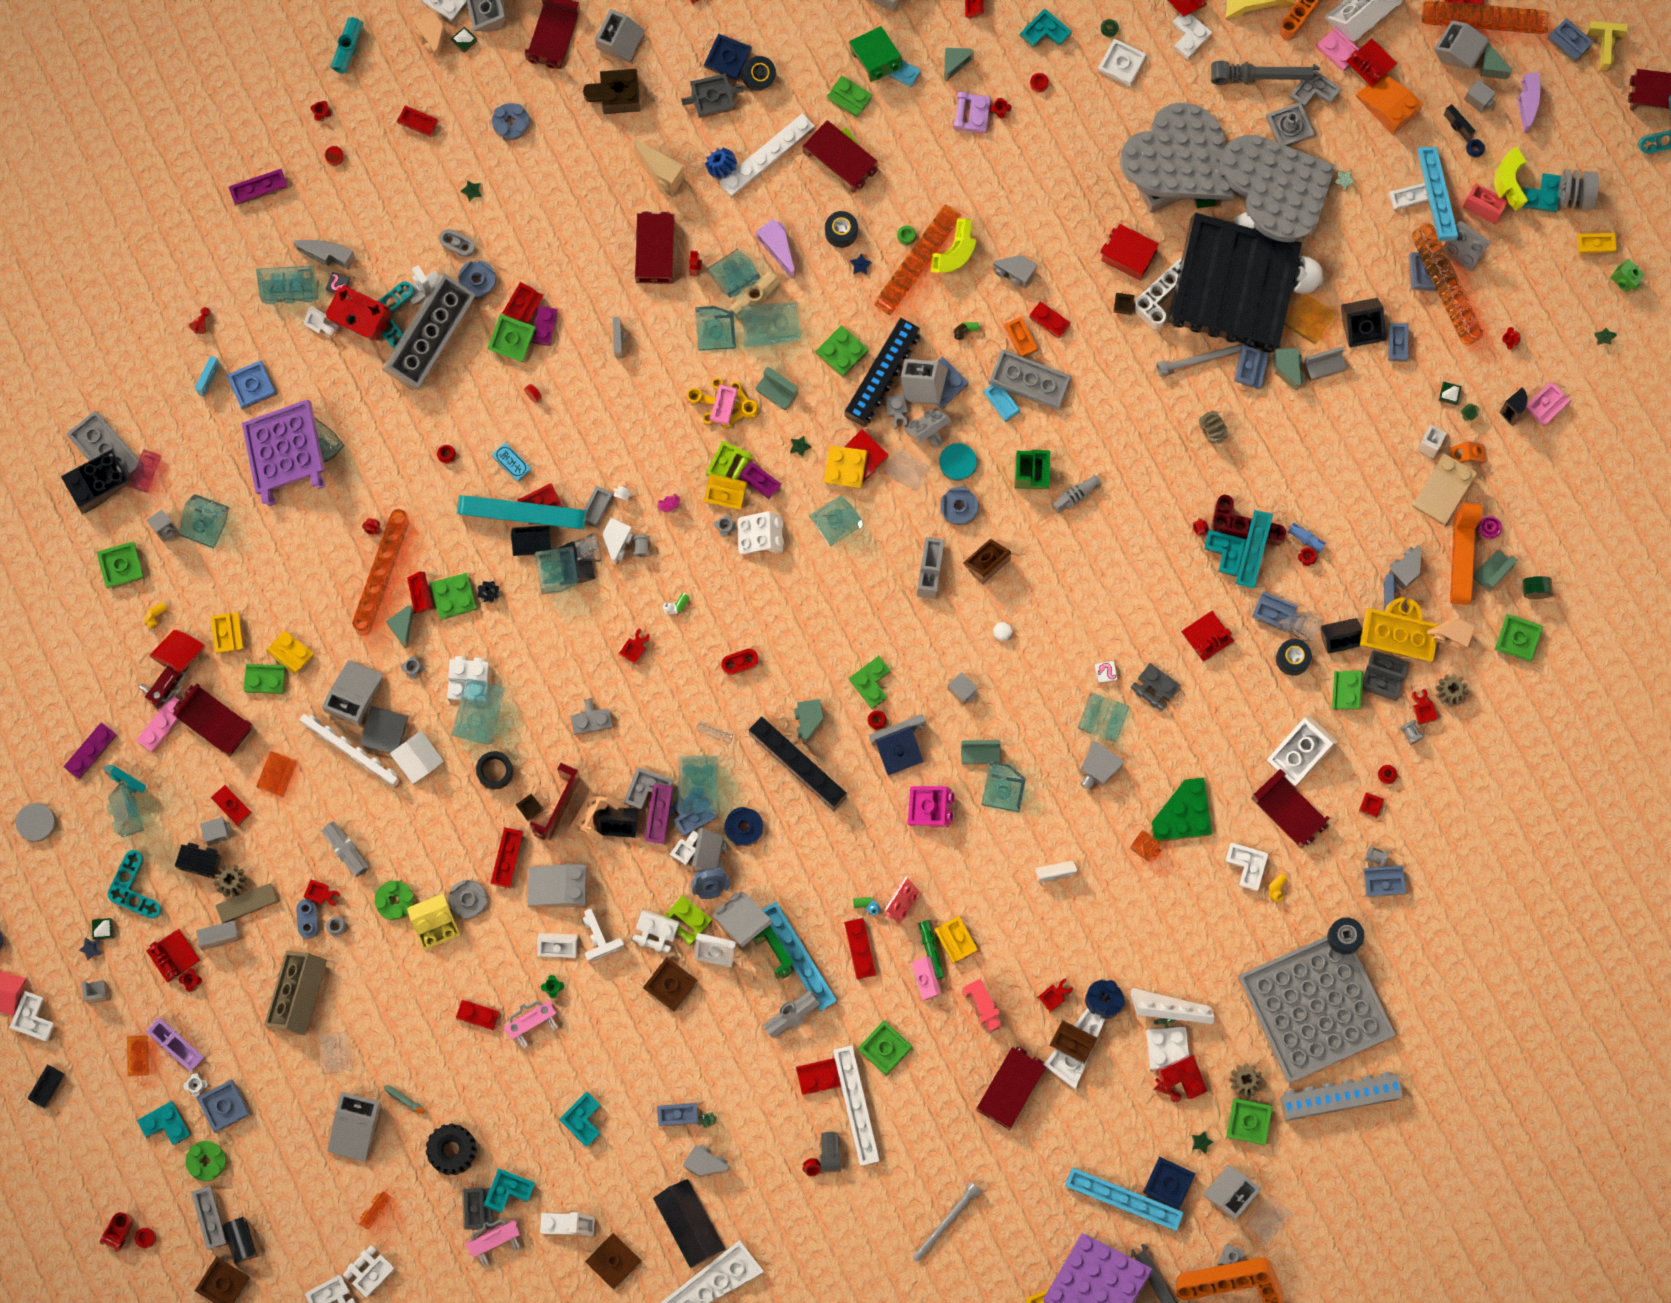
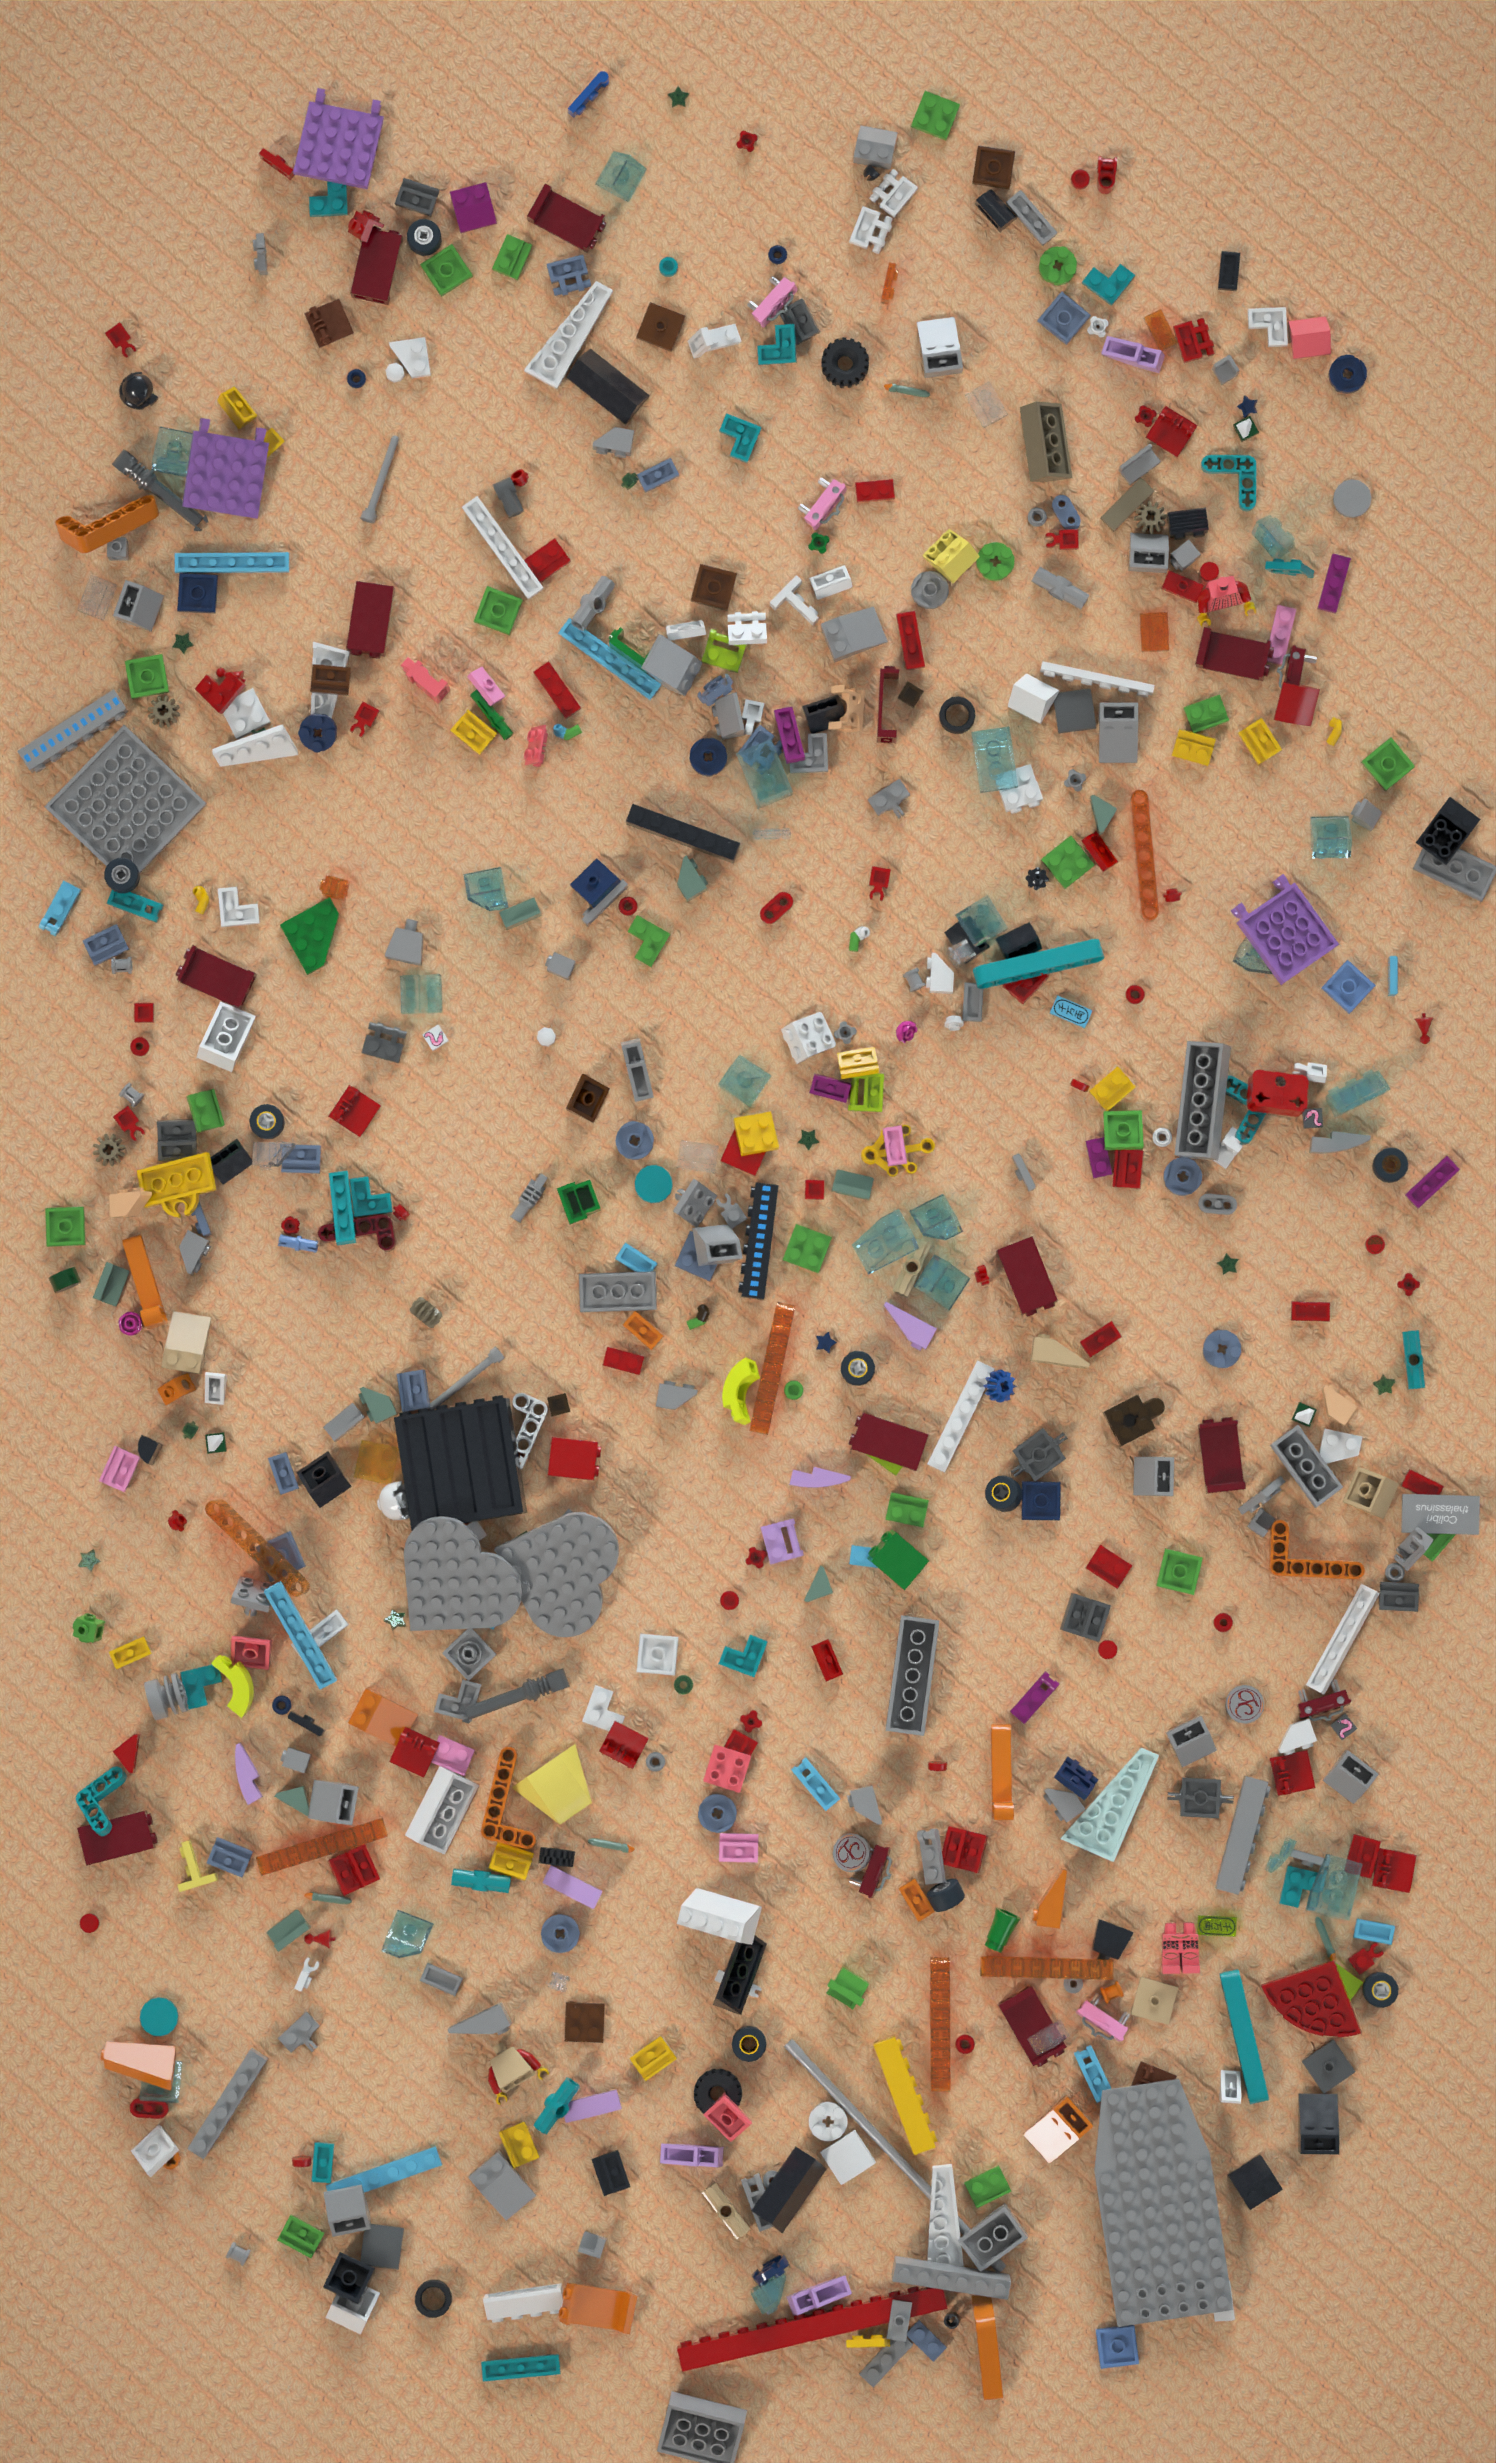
camera: 160 degrees right, 10 degrees up
(116, 1033) = (1188, 342): none -> red plate
(145, 471) = (1407, 861): clear pink slope -> none
(198, 778) = (1223, 594): none -> torso
(199, 809) = (1209, 571): none -> red tile
(247, 847) = (1148, 553): none -> light grey slope
(288, 222) = (1387, 1170): none -> black wheel
(382, 35) = (1384, 1385): none -> clear green piece
(469, 1278) = (777, 248): none -> dark blue plate
(479, 315) = (1166, 1132): none -> white plate
(505, 380) = (1112, 1089): none -> yellow plate
(613, 170) = (1100, 1339): none -> red plate
(813, 398) = (814, 1189): none -> red plate
(916, 150) = (818, 1478): none -> lavender slope
(930, 806) = (545, 843): dark pink plate -> none
(1055, 871) = (408, 832): white slope -> none
(1340, 906) = (135, 905): none -> teal plate
(1415, 935) = (60, 908): none -> medium azure plate
(1631, 159) = (128, 1752): none -> red slope

